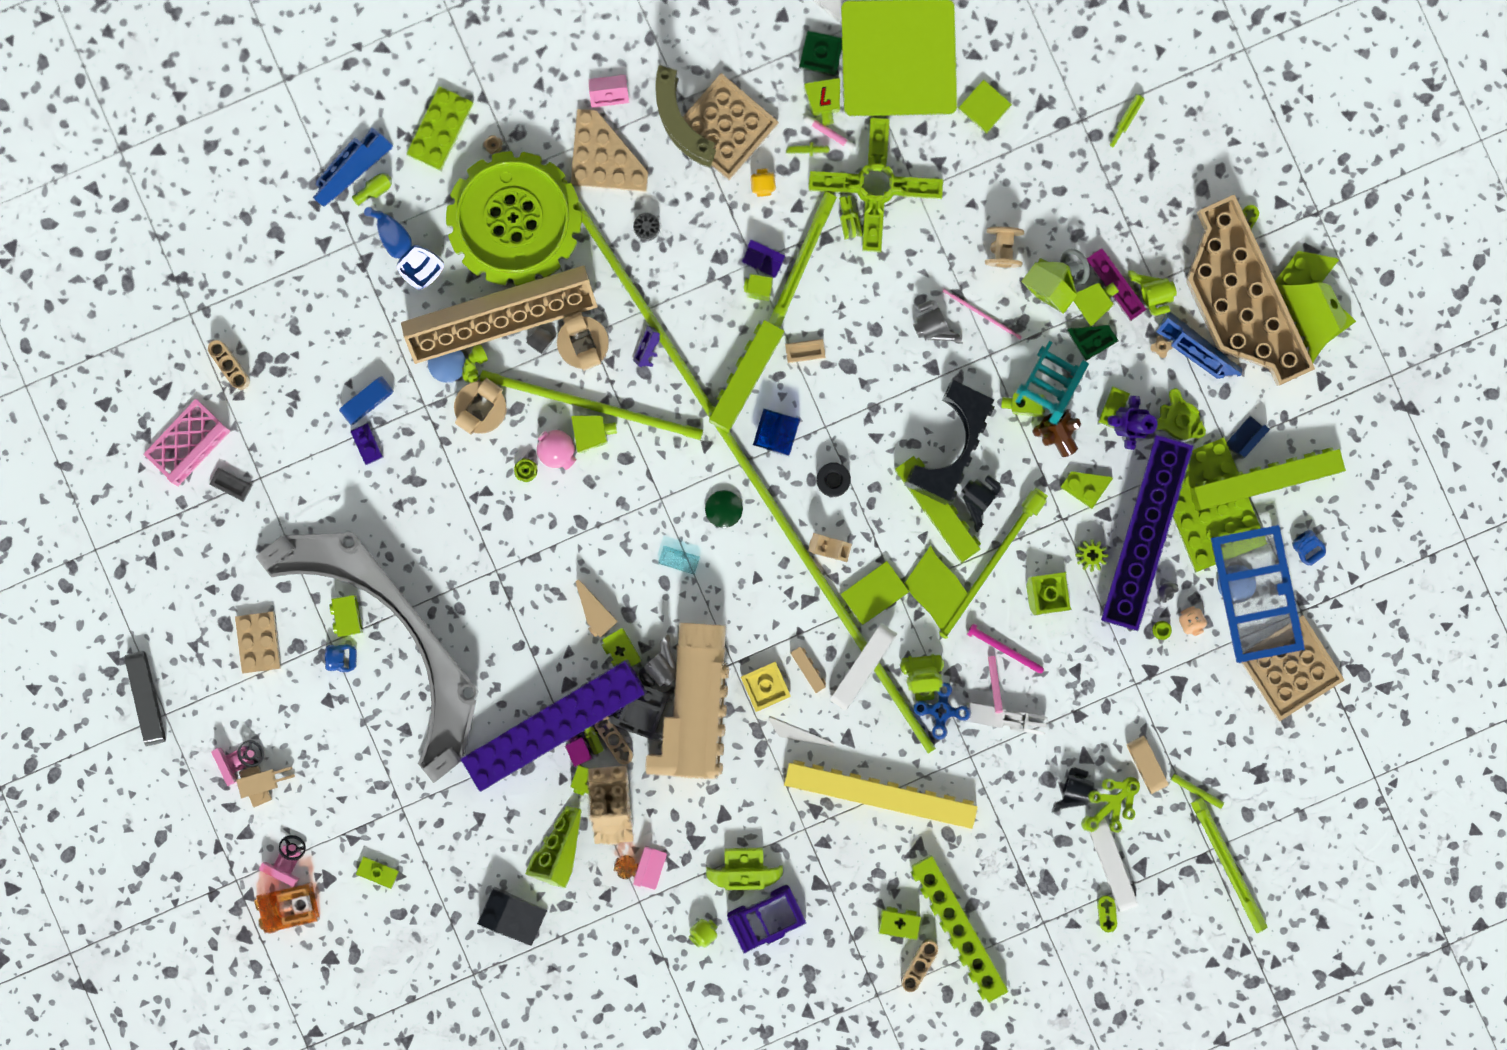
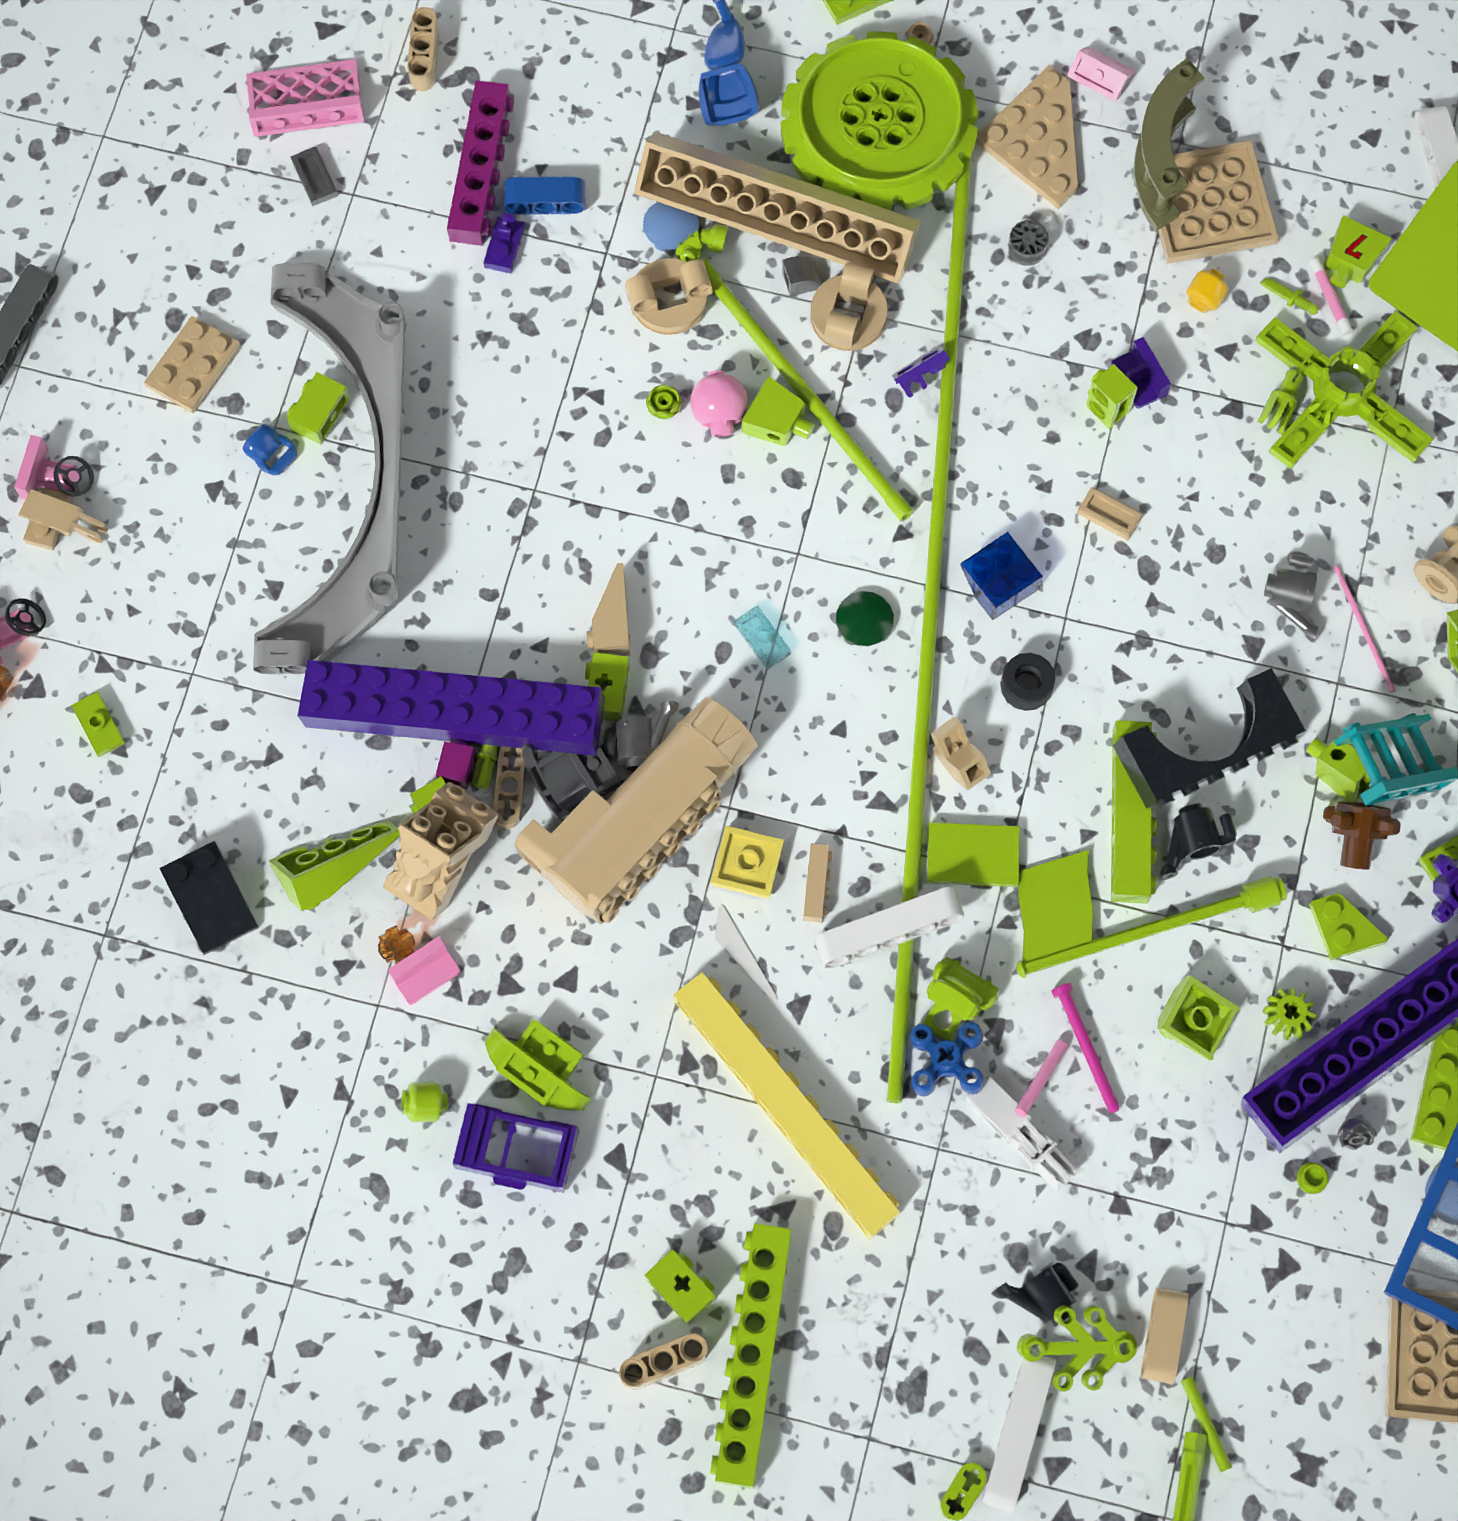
camera: 30 degrees right, 15 degrees down
(287, 369) = (486, 98): none -> magenta brick
(746, 376) = (1014, 484): lime brick -> none
(802, 259) = (1187, 408): lime piece -> none
(821, 53) = (1387, 202): dark green plate -> none
(1192, 621) = (1363, 1195): light nougat head -> none

